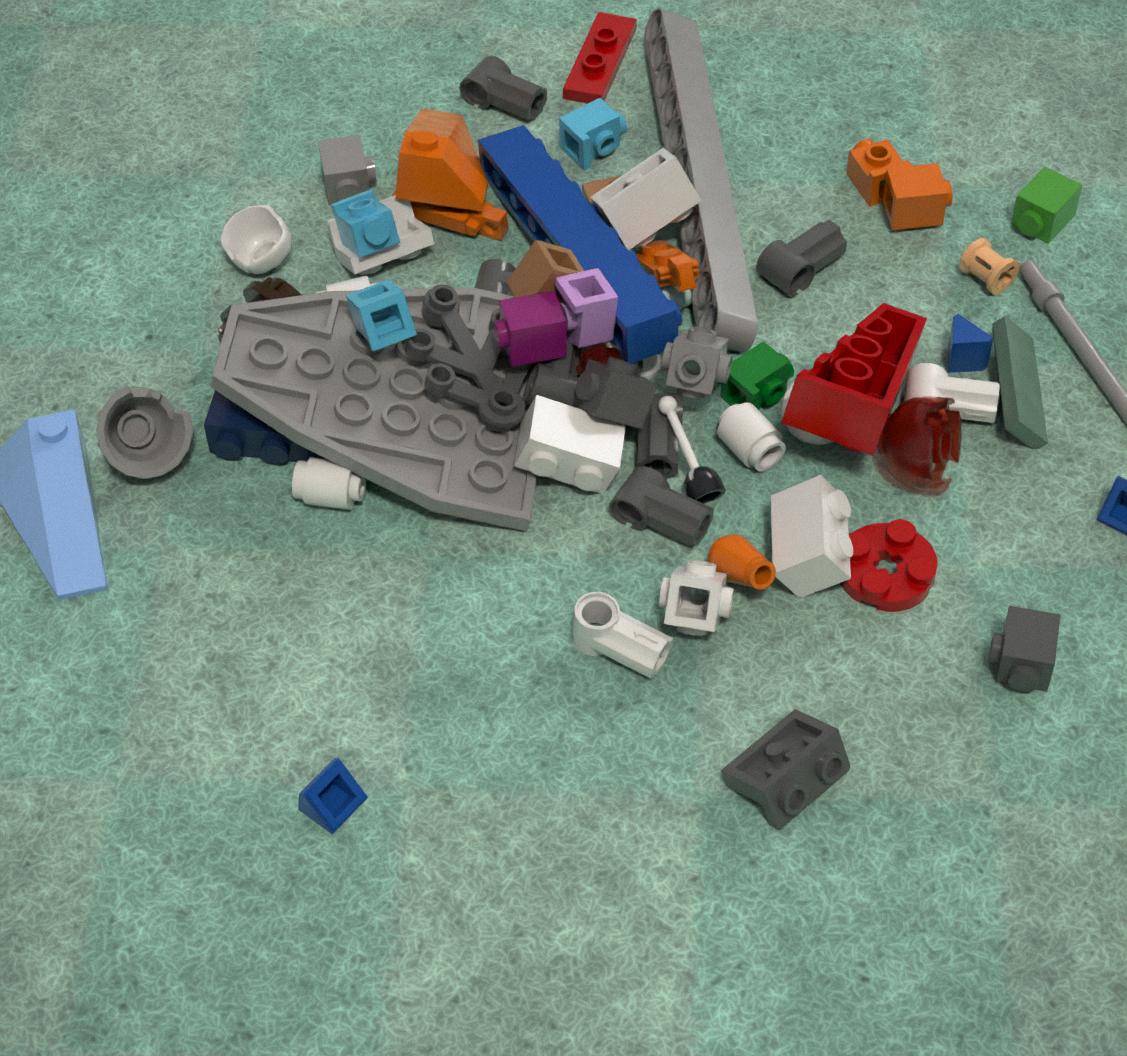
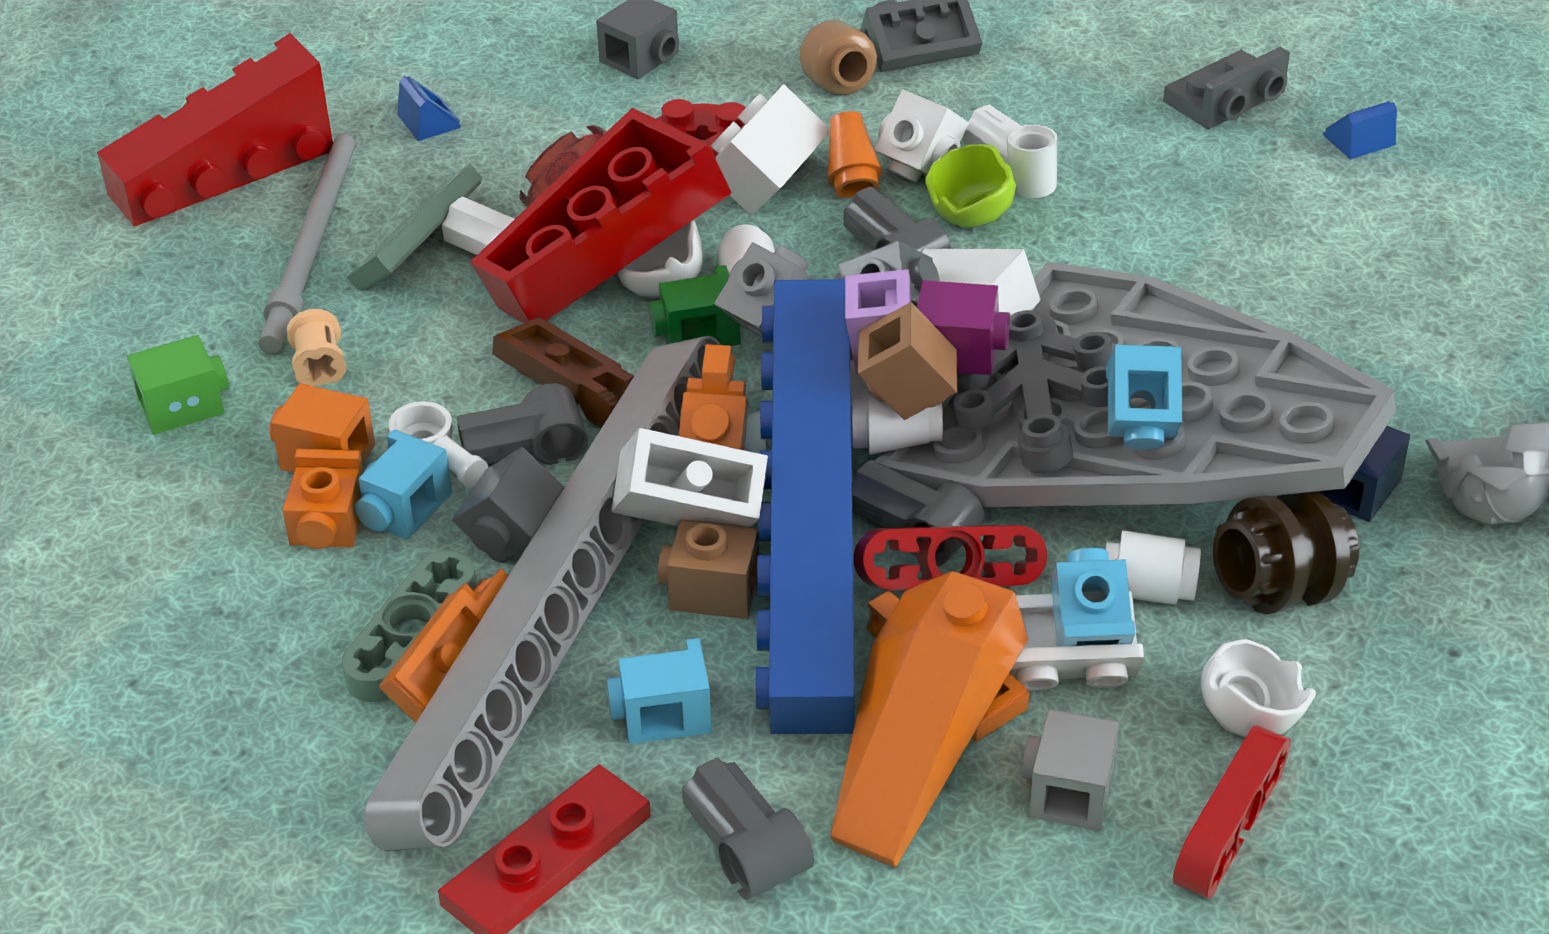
camera: 155 degrees left, 10 degrees down
(251, 173) = (1230, 809): none -> red beam
(469, 808) = (1229, 86): none -> dark grey bracket
(476, 251) = (995, 537): none -> red beam
(626, 568) = (971, 185): none -> lime hair
(701, 482) = (832, 244): hinge -> none
(732, 118) = (438, 644): none -> orange hinge
(761, 192) = (508, 505): none -> dark grey brick
(766, 122) = (410, 600): none -> sand green beam
(809, 309) = (557, 357): none -> reddish brown hinge
(834, 689) = (838, 57): none -> medium nougat head
(841, 193) = (403, 485): none -> medium azure brick
(858, 222) = (434, 425): none -> white bar
(967, 347) = (439, 271): blue slope -> none

